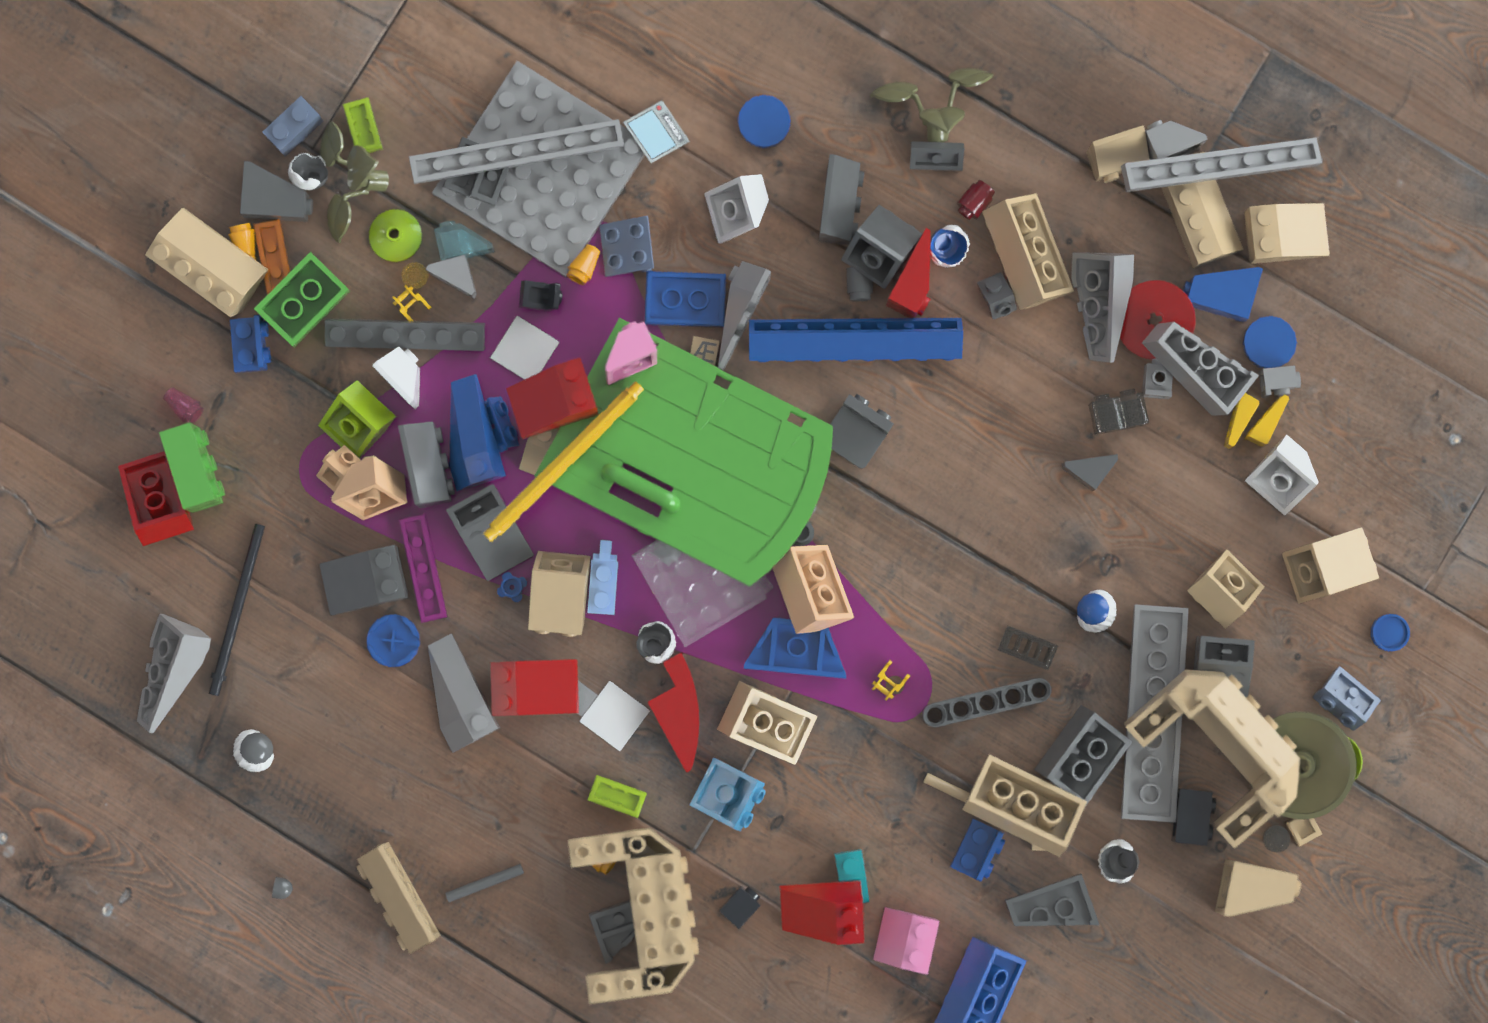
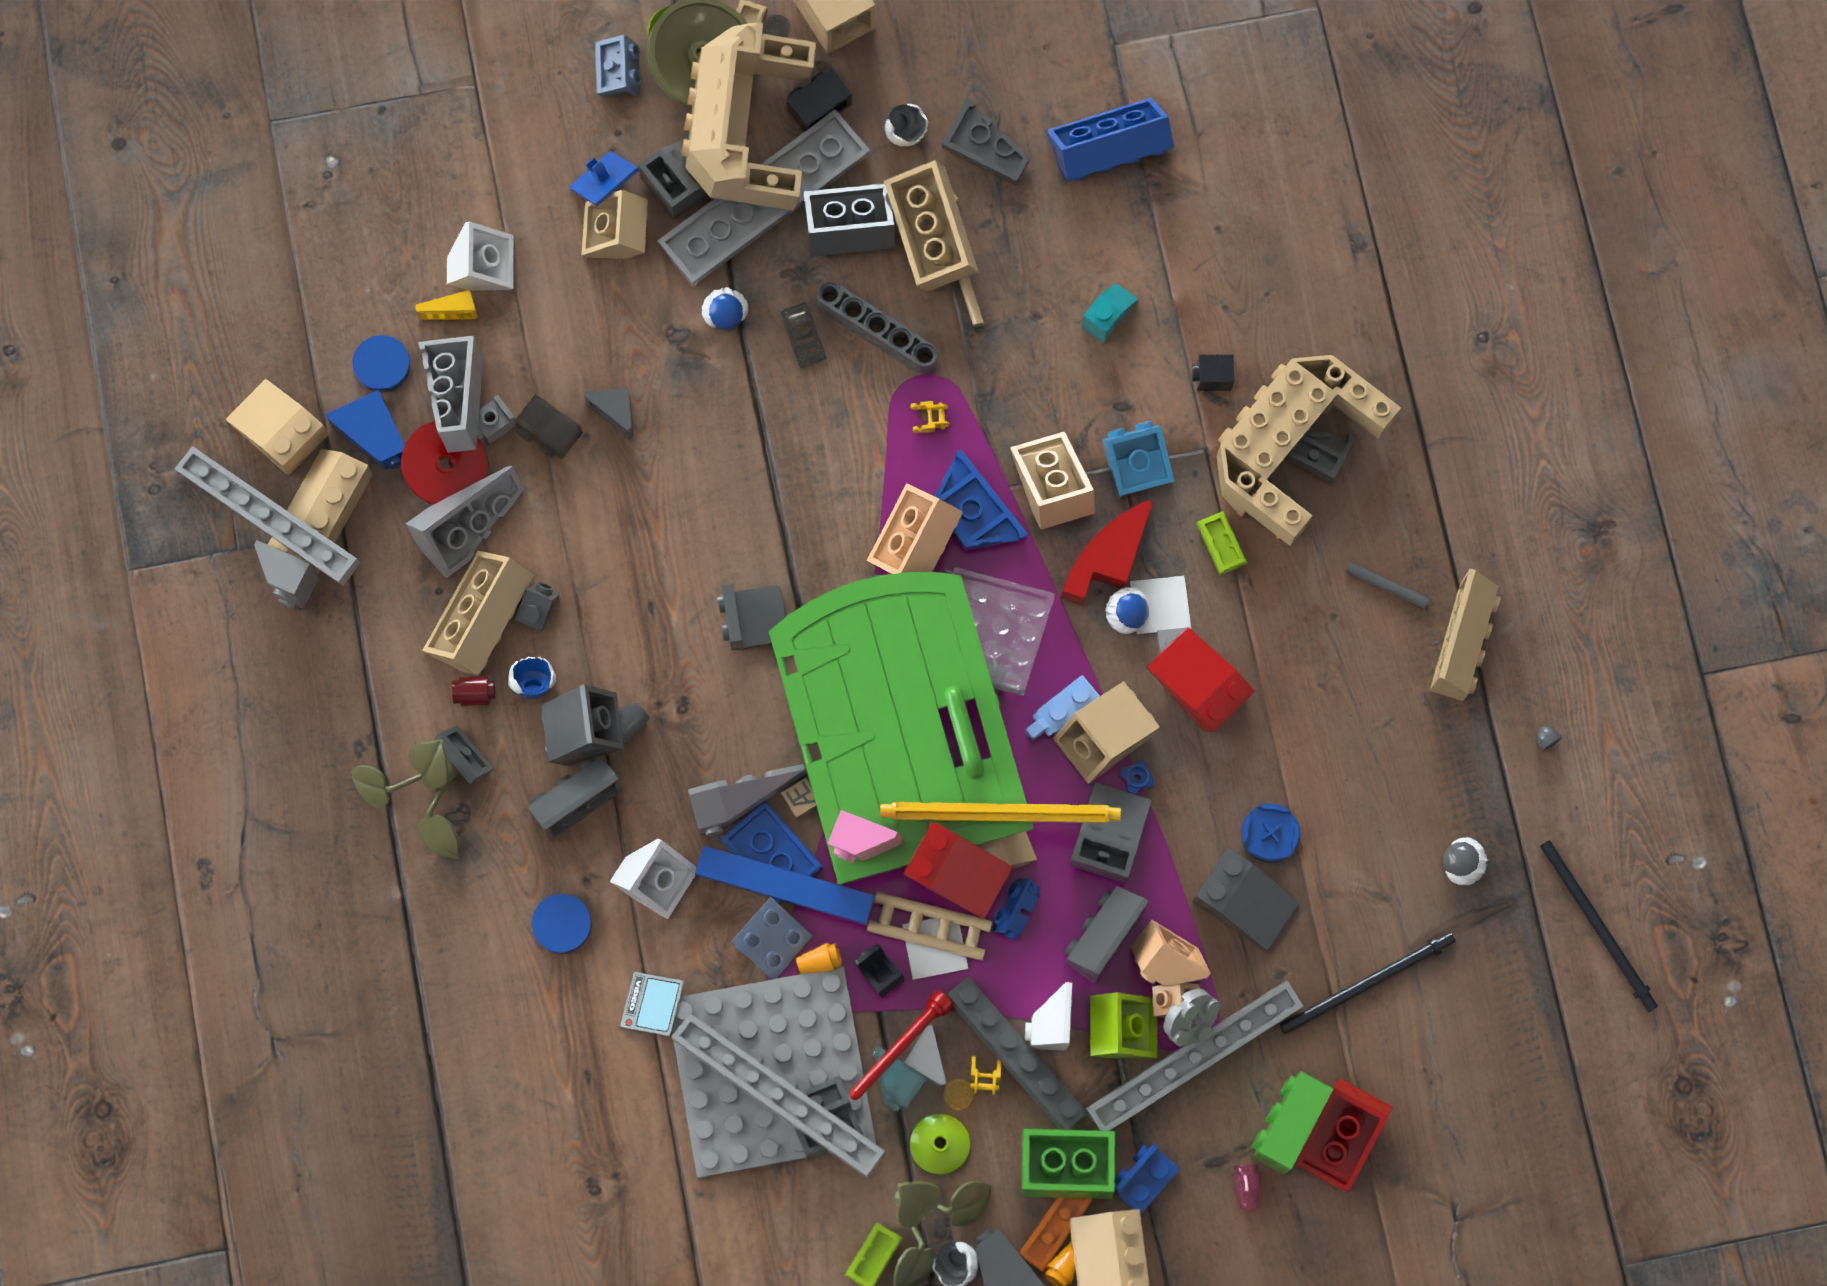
camera: 135 degrees left, 10 degrees down
(63, 785) = (1599, 926): none -> black bar
(175, 660) = (1458, 991): light grey wedge -> none
(294, 448) = (1194, 1058): none -> light grey plate
(315, 463) = (1192, 1018): none -> light grey plate
(423, 568) = (1190, 863): magenta tile -> none
(459, 700) = (1269, 730): light grey wedge -> none
(473, 446) = (1054, 912): blue wedge -> none
(482, 312) = (937, 1006): none -> red piece
(545, 341) = (946, 918): none -> tan bar
(630, 687) = (1127, 610): none -> hair
(653, 285) = (784, 885): none -> blue tile
(656, 642) = (1073, 620): dark grey hair -> none
(824, 911) = (1156, 302): red slope -> none
(855, 339) = (679, 682): blue brick -> none
(906, 940) = (1118, 227): bright pink slope -> none
(914, 282) = (594, 667): red slope -> none
(977, 850) = (997, 235): blue bracket -> none
(1112, 152) = (330, 609): tan slope -> none
(1240, 417) = (474, 326): yellow slope -> none
(1268, 612) = (603, 178): none -> blue piece
(1278, 380) = (407, 328): light grey brick -> none
(1330, 565) = (523, 164): tan slope -> none
(1390, 632) = (534, 80): blue piece -> none

